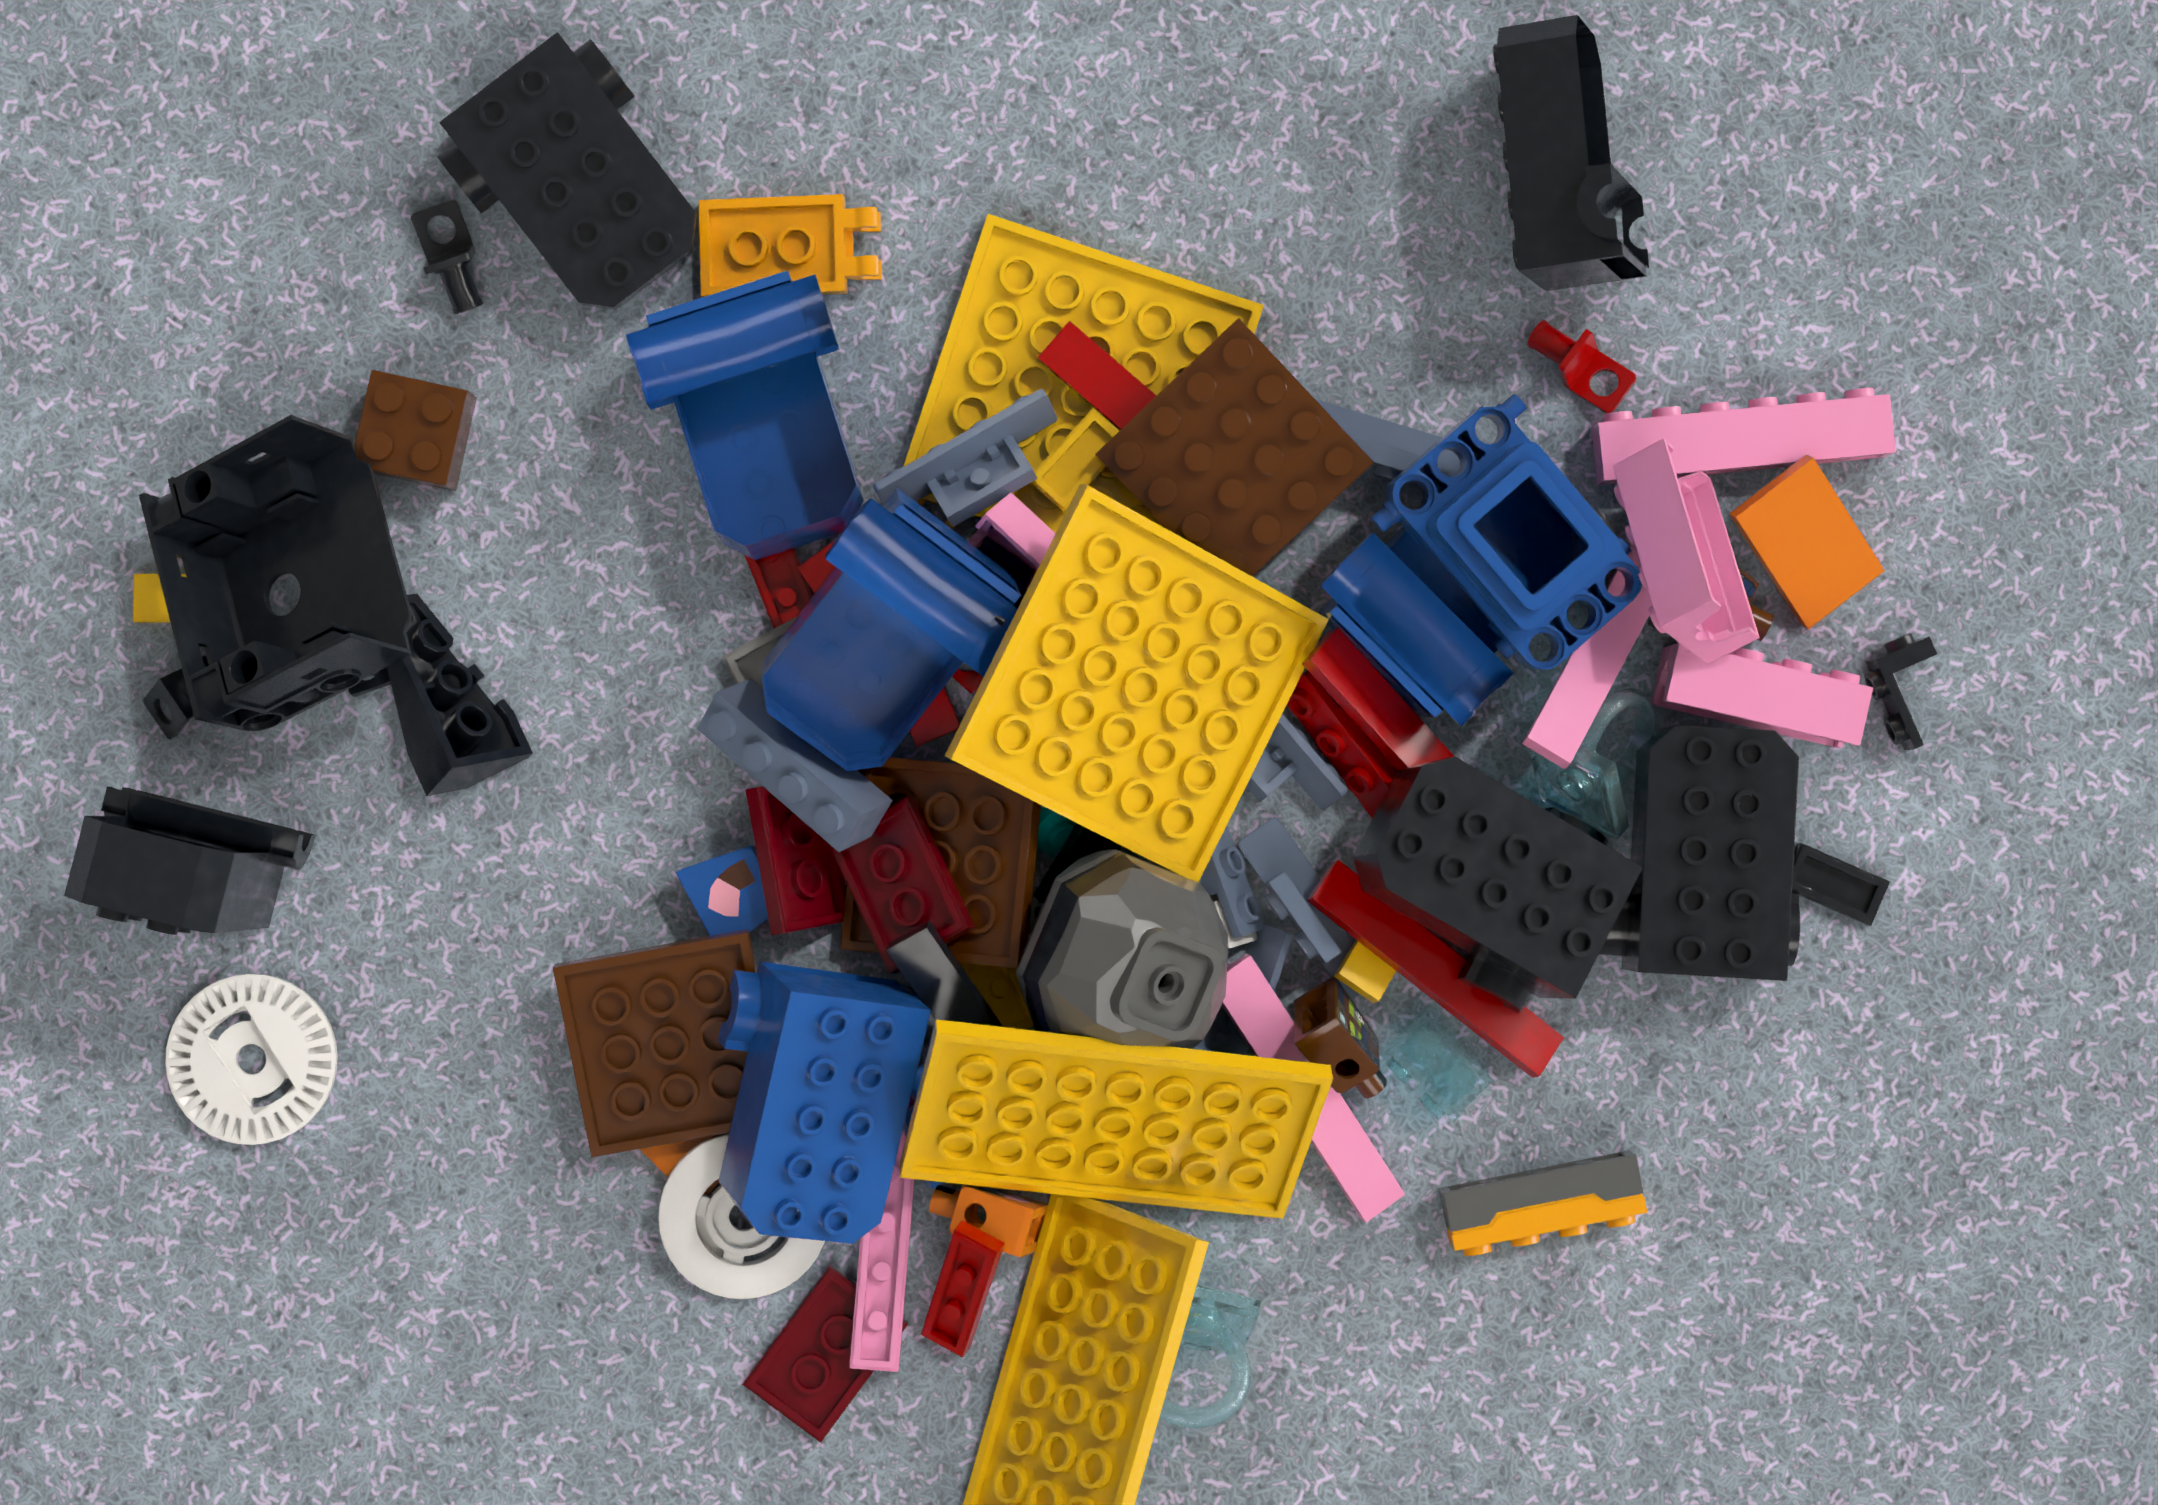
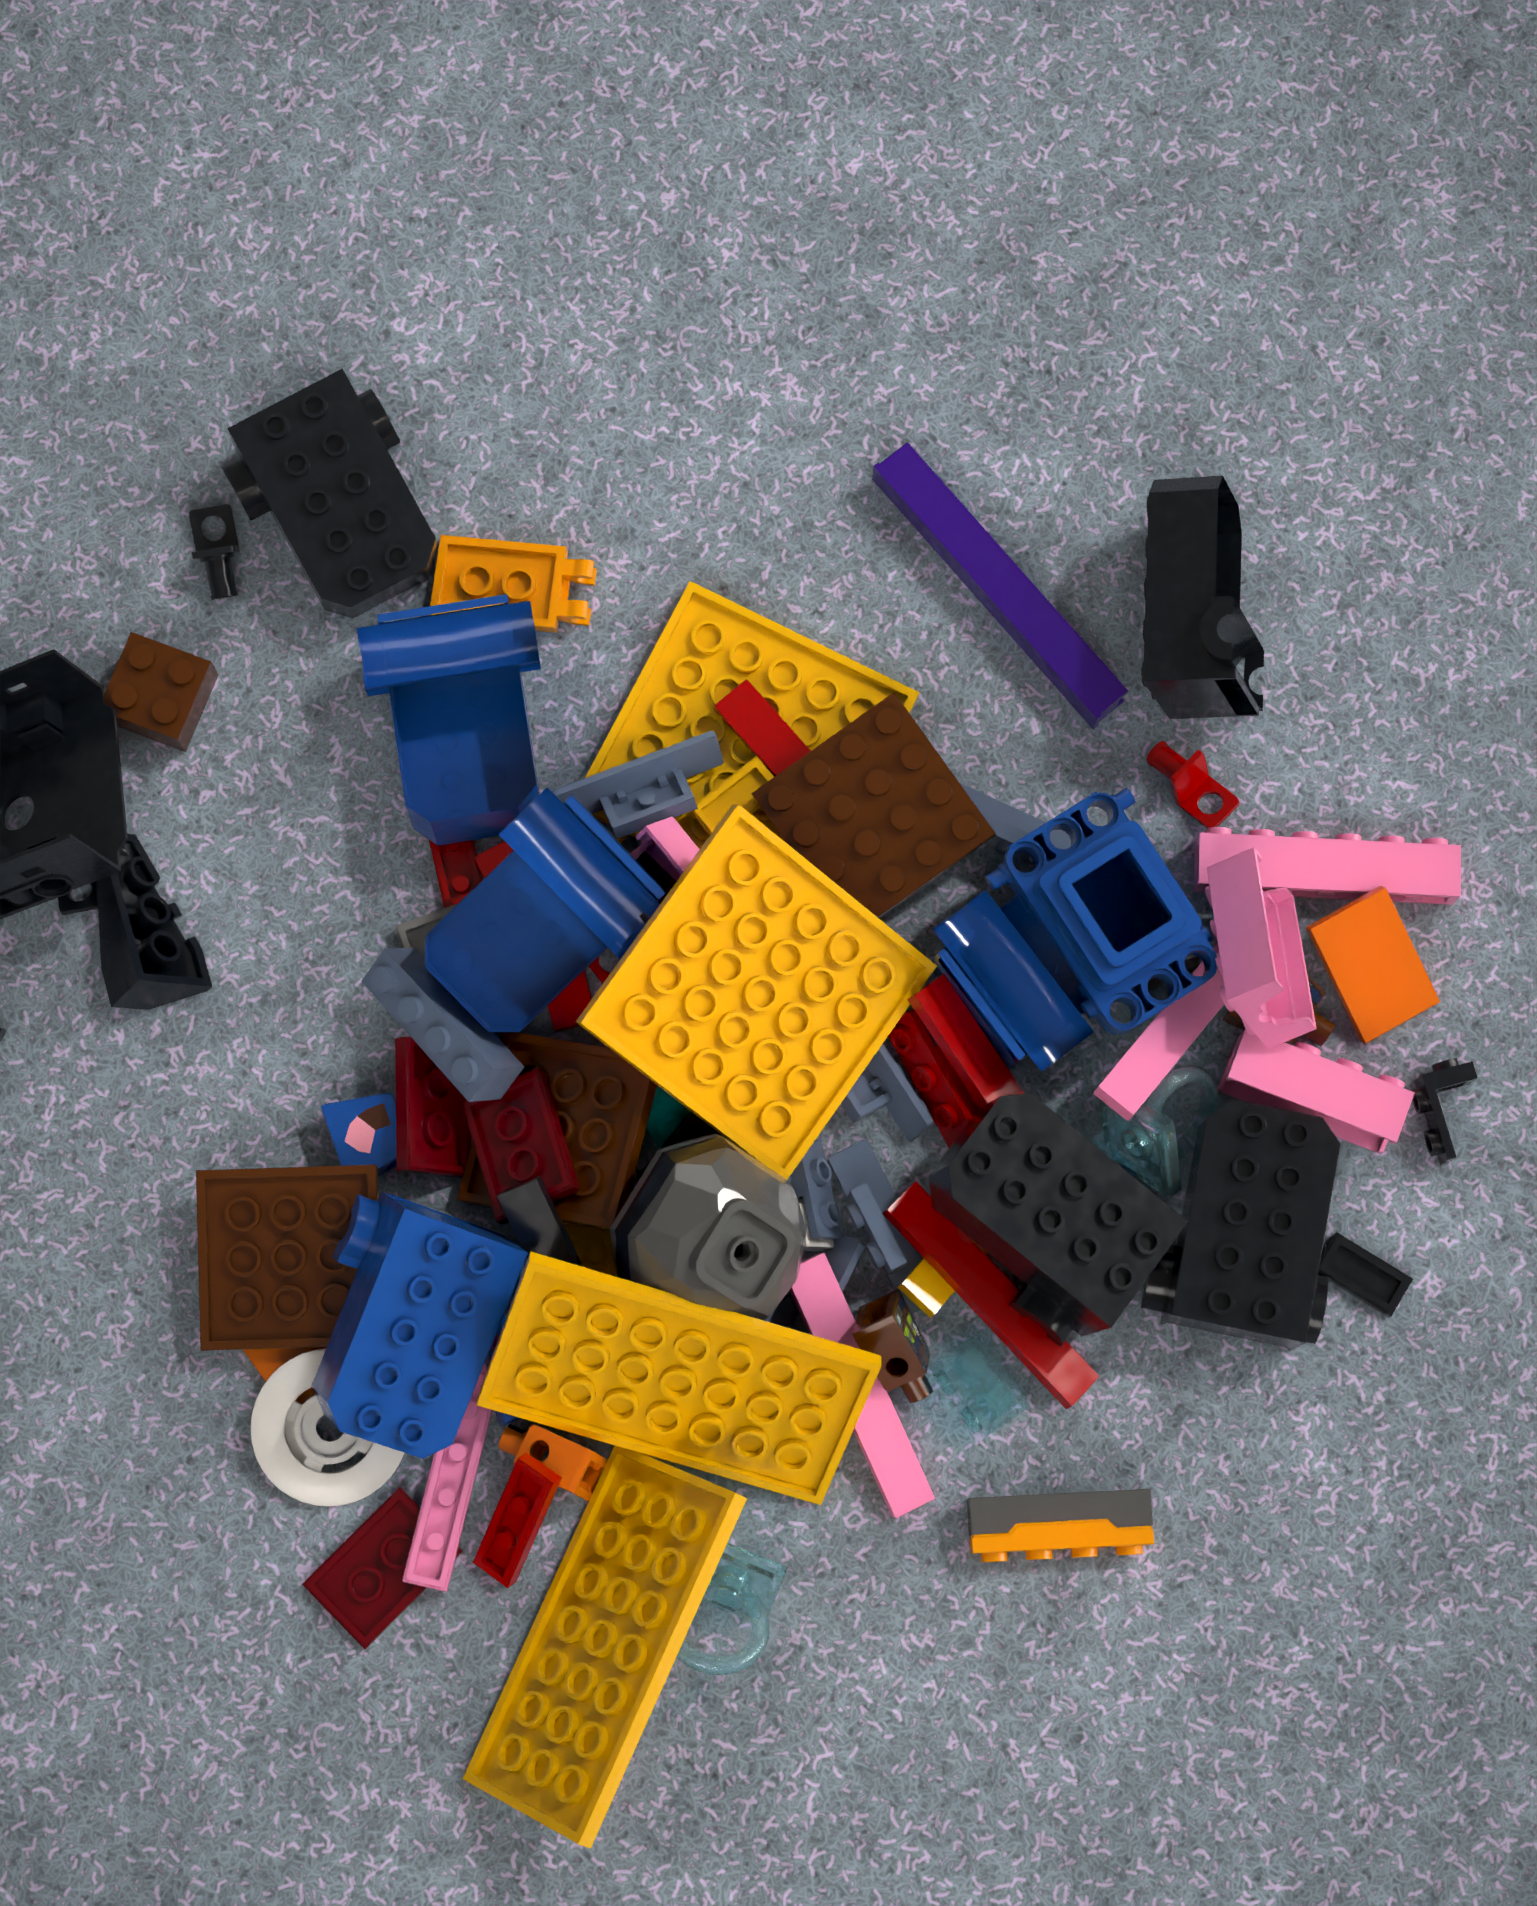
camera: 10 degrees right, 10 degrees down
(1335, 165) = (999, 584): none -> dark purple tile

